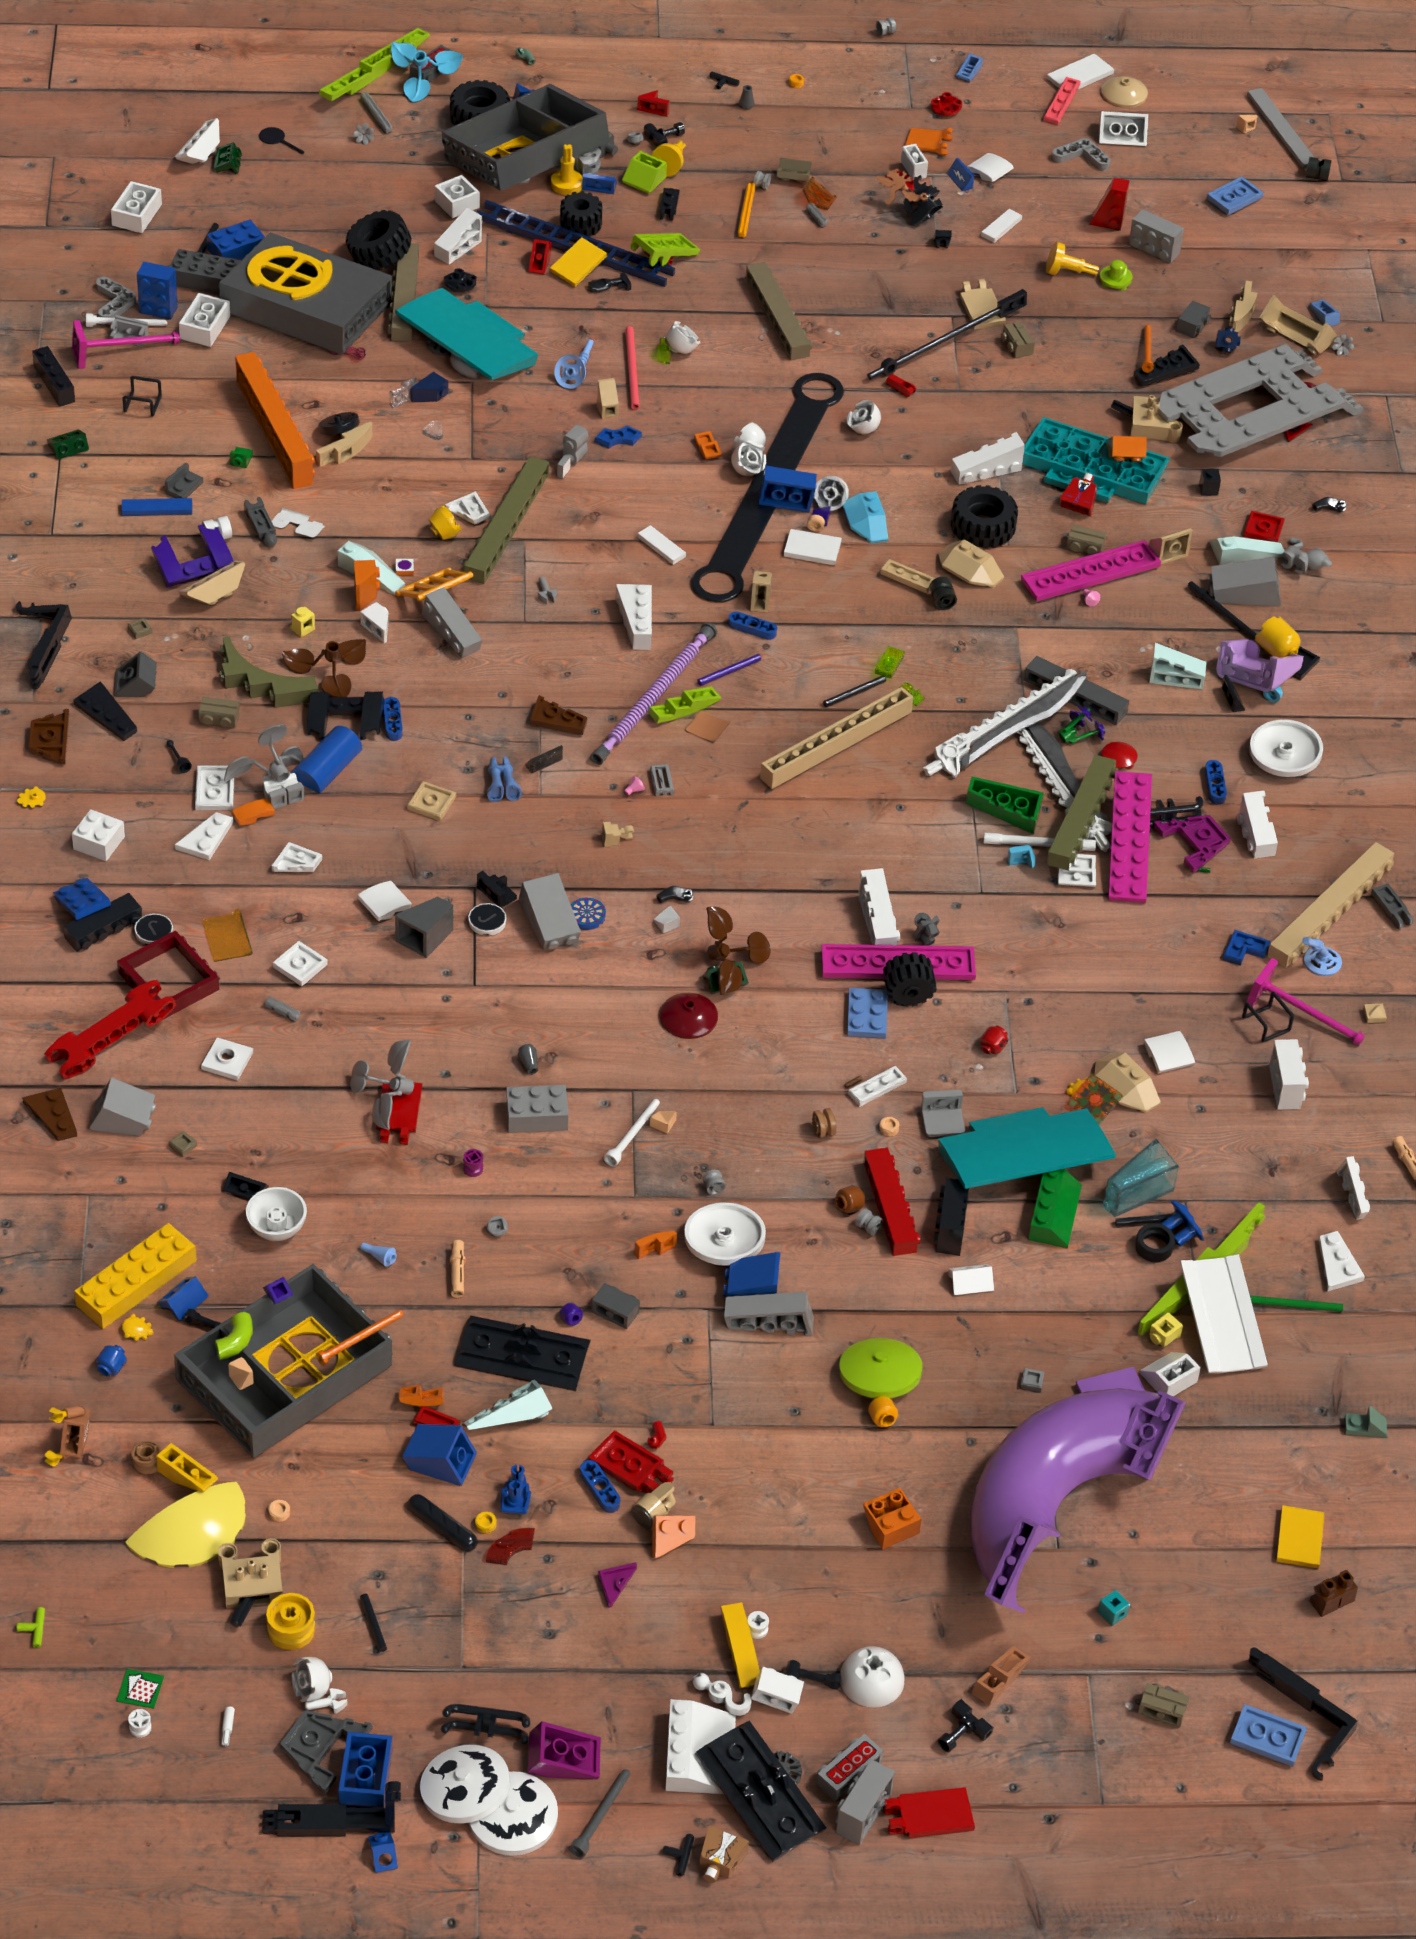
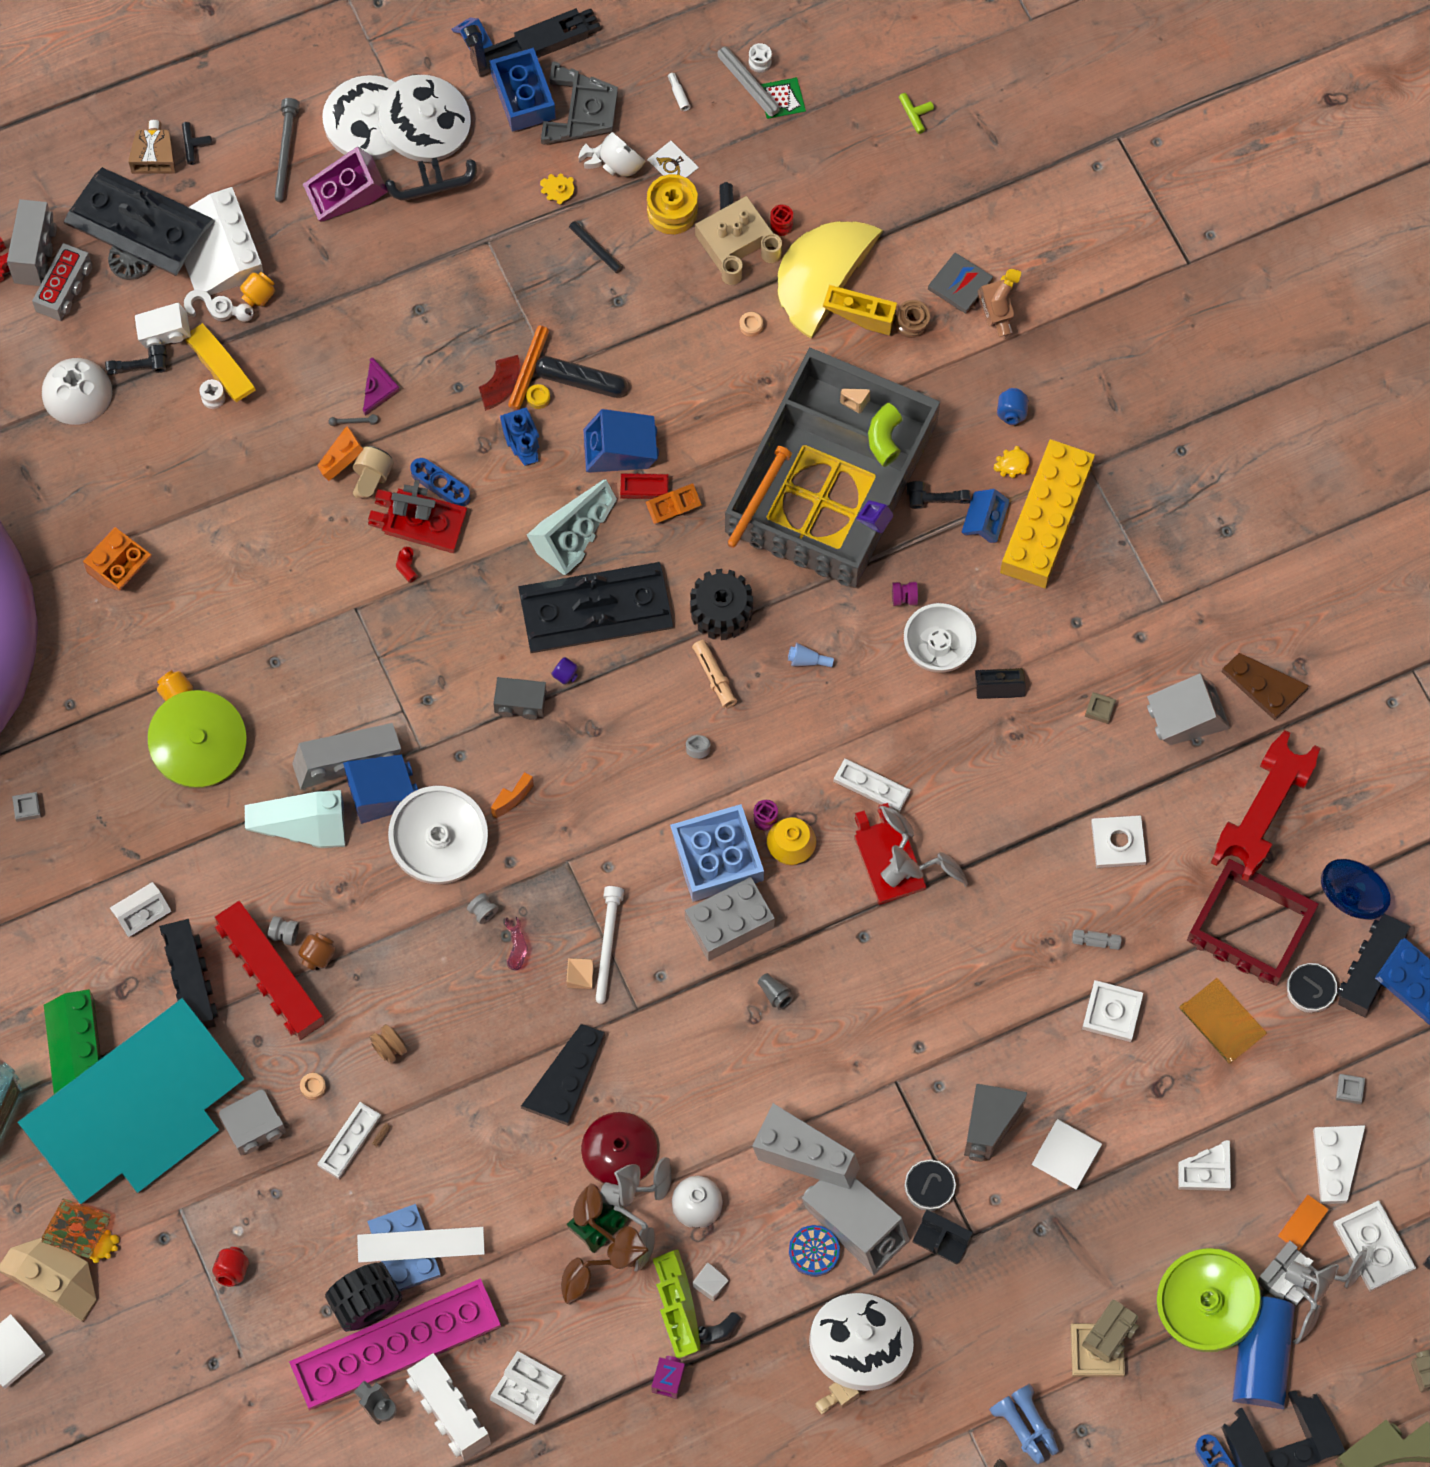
camera: 160 degrees right, 20 degrees up
(85, 960) = (1355, 889): none -> clear blue dish
(89, 1474) = (959, 282): none -> dark grey tile
(162, 1708) = (748, 81): none -> light grey axle
(169, 869) = (1350, 1089): none -> light grey tile
(205, 1576) = (778, 224): none -> red wheel
(267, 1670) = (672, 161): none -> white sticker
(280, 1265) = (899, 591): none -> magenta wheel
(344, 789) = (1209, 1300): none -> lime dish
(378, 1684) = (557, 187): none -> yellow piece
(382, 1158) = (871, 785): none -> white tile
(419, 796) = (1110, 1332): none -> dark tan brick
(426, 1304) = (719, 616): none -> black wheel
(461, 1138) = (791, 841): none -> yellow cone
(481, 1546) = (528, 368): none -> orange axle
(522, 1145) = (716, 852): none -> light blue slope
(564, 952) = (802, 1149): none -> light grey wedge
(585, 849) = (861, 1341): none -> white dish
(631, 1559) = (372, 419): none -> dark grey hinge
(632, 1463) = (423, 505): none -> dark grey hips
(651, 964) = (697, 1202): none -> white cylinder
(681, 1690) = (257, 289): none -> light orange head
(695, 913) = (678, 1304): none -> lime slope
(699, 1151) = (519, 948): none -> clear pink arm
(704, 1066) = (564, 1080): none -> black wing
(705, 970) = (624, 1192): none -> light grey plant
(723, 880) = (668, 1377): none -> magenta brick
(820, 911) = (526, 1388): none -> white slope
(825, 1293) = (305, 818): none -> light aqua wedge
(855, 1003) = (420, 1244): none -> white sticker

